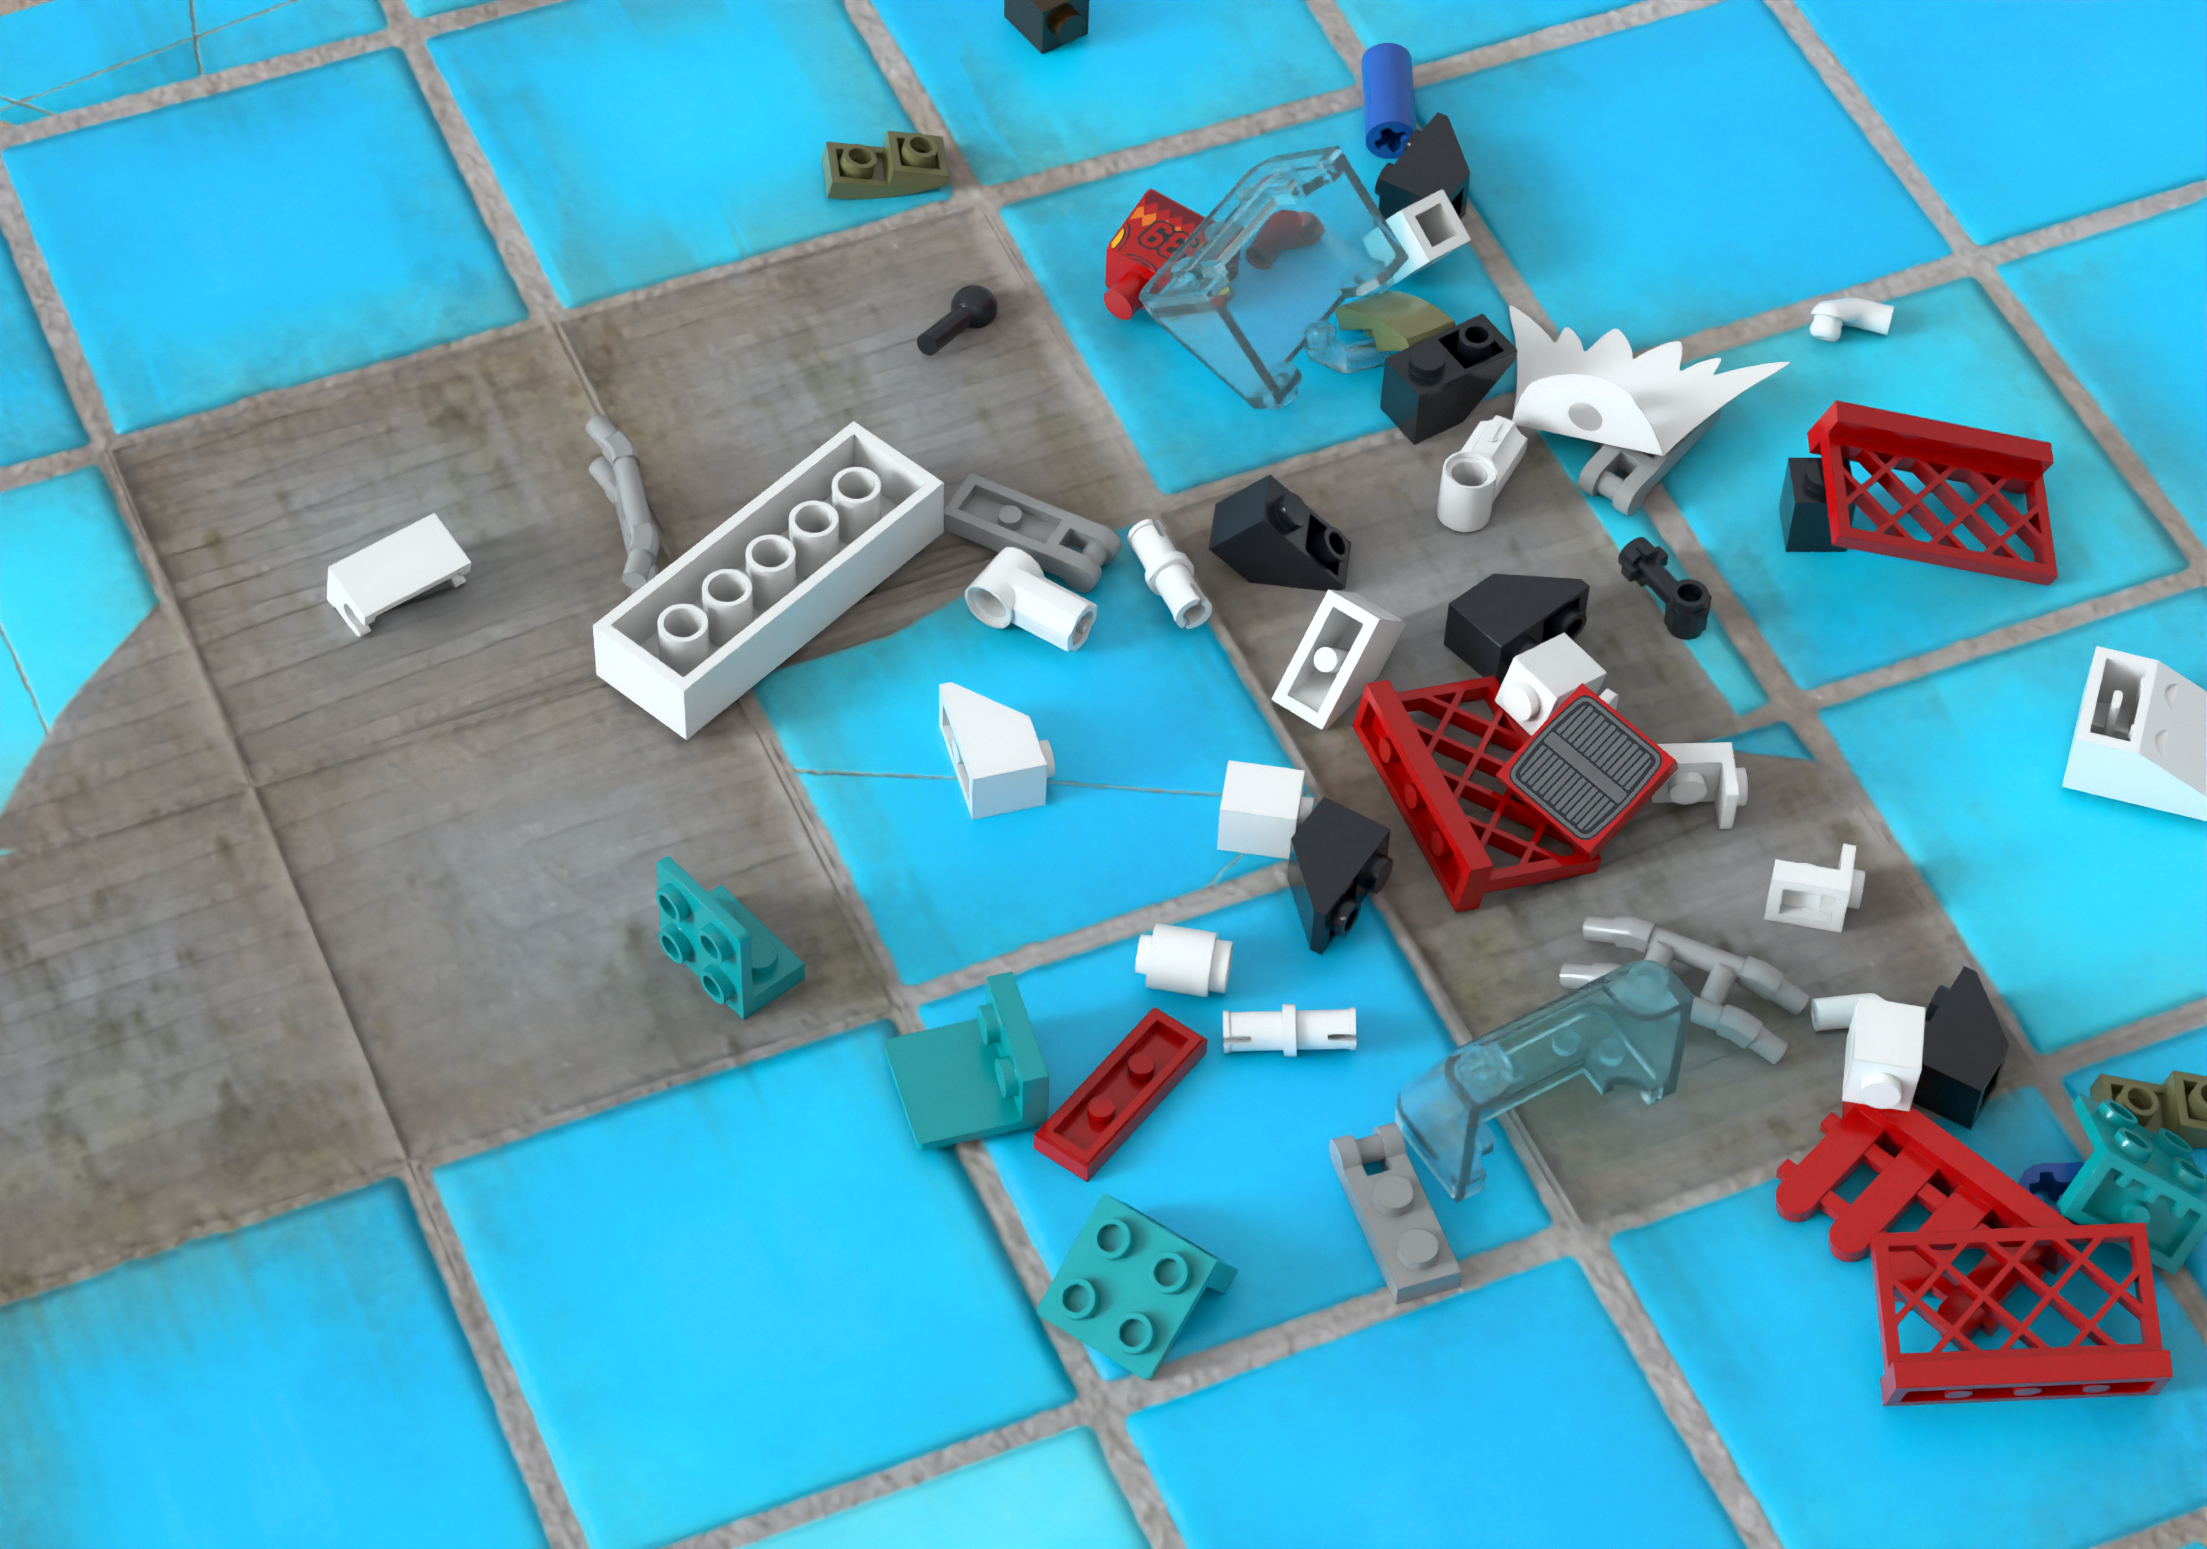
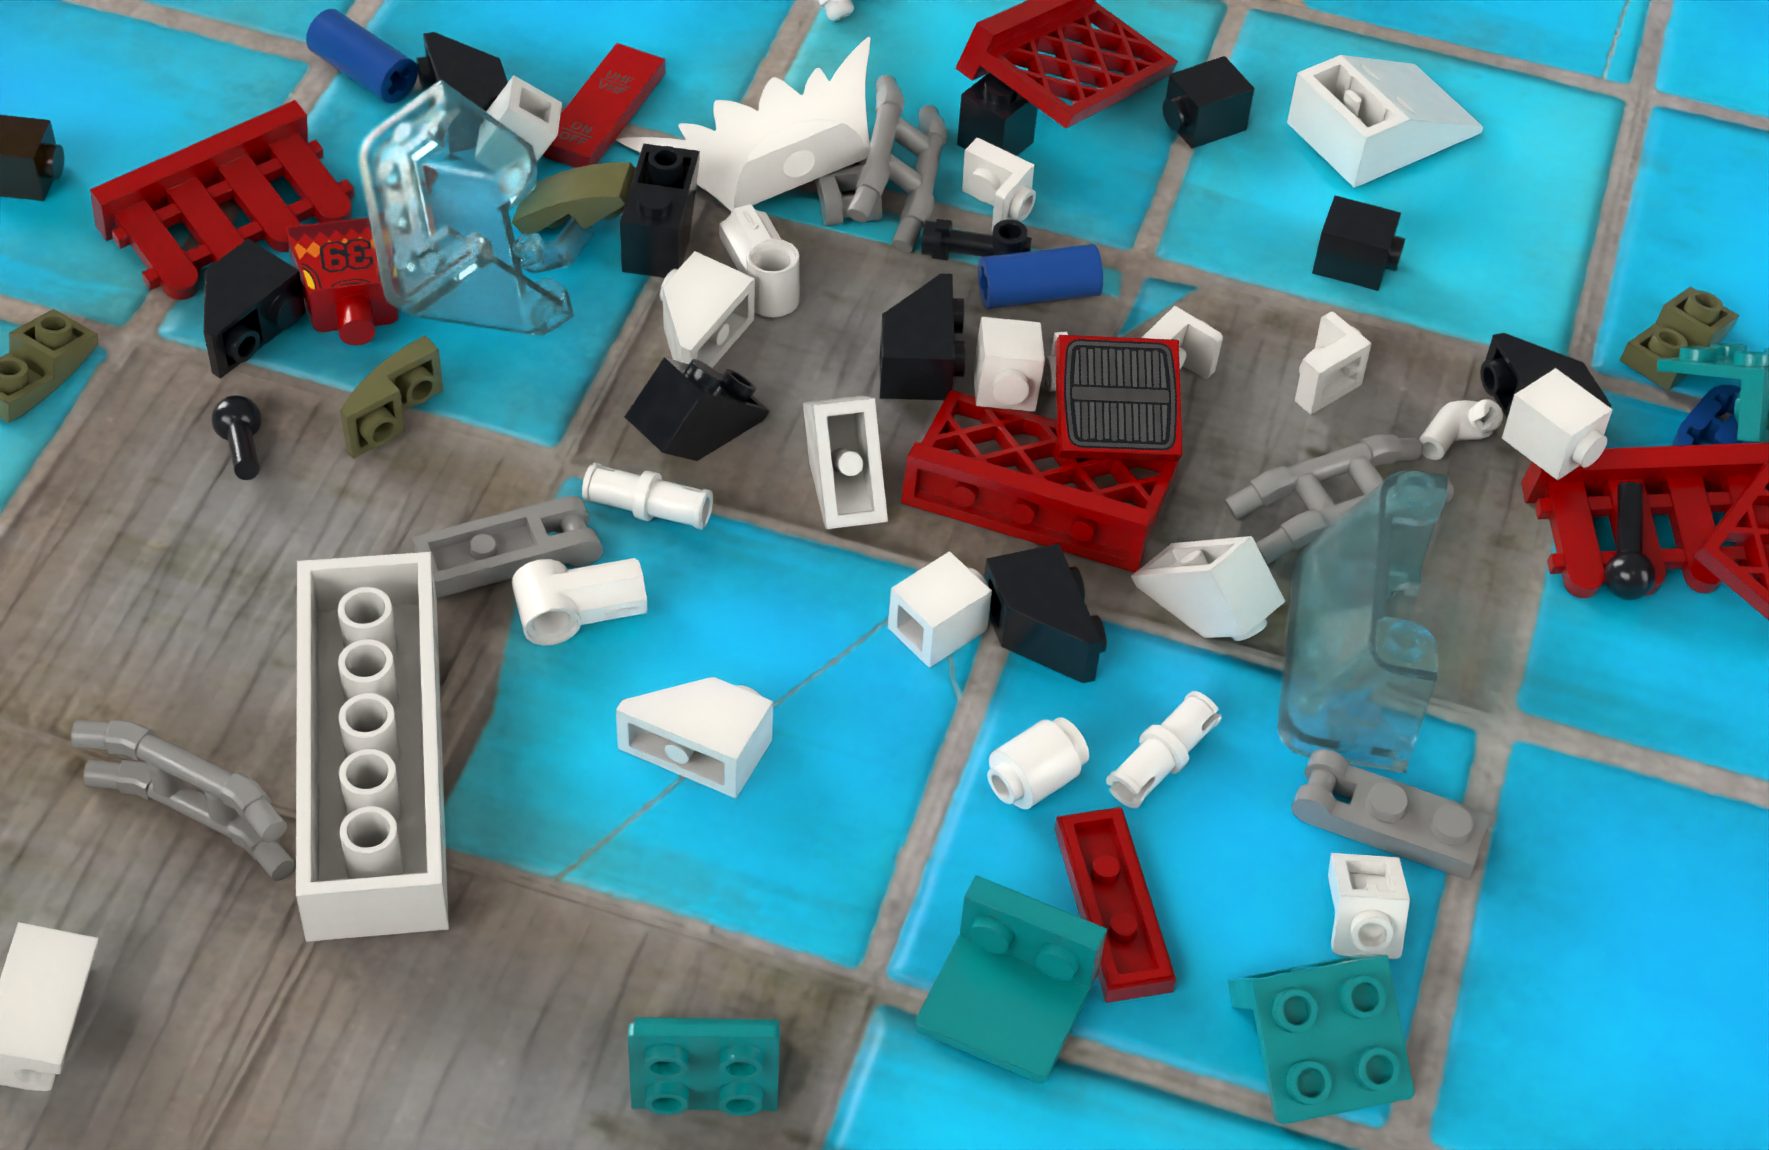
camera: 50 degrees left, 0 degrees up
(1062, 227) = (247, 304): none -> black slope
(1064, 365) = (377, 404): none -> olive slope
(1151, 111) = (201, 177): none -> red fence
(1283, 1238) = (1368, 905): none -> white bracket
(1376, 479) = (705, 308): none -> white slope
(1479, 962) = (1213, 586): none -> white slope
(1527, 271) = (605, 105): none -> red tile
(1659, 464) = (882, 165): none -> light grey piece
(1679, 648) = (1040, 276): none -> blue piece
(1748, 560) = (999, 180): none -> white bracket
(1828, 1221) = (1629, 572): none -> black bar
(1981, 822) = (1358, 243): none -> black brick
(2020, 623) = (1208, 102): none -> black brick

